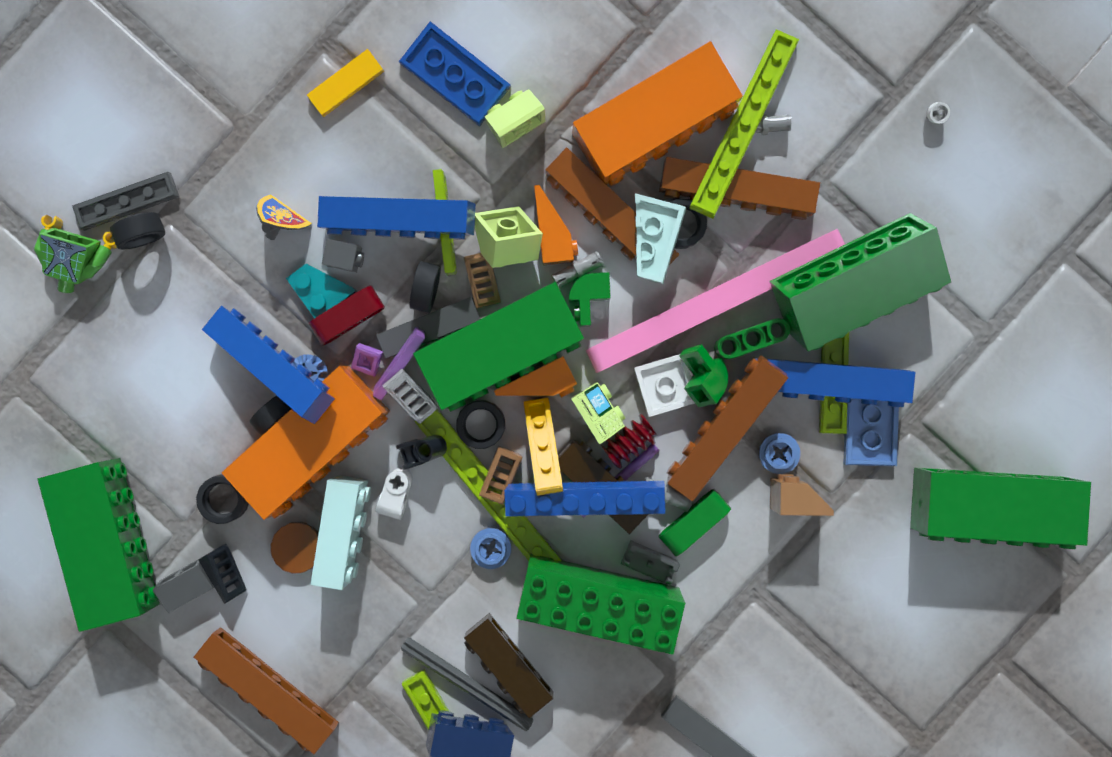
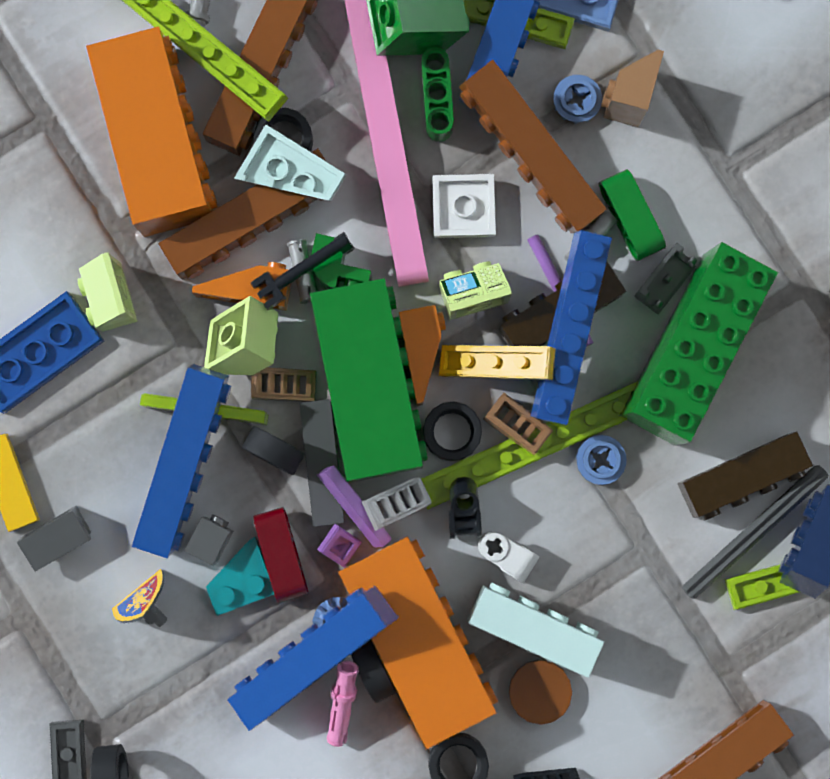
camera: 75 degrees left, 5 degrees down
(248, 396) = (343, 695): none -> bright pink pin
(310, 133) = (55, 538): none -> dark grey hinge
(604, 295) = (275, 286): none -> black hinge
(630, 441) = (517, 262): dark red piece -> none
(708, 378) = (465, 152): green brick -> none

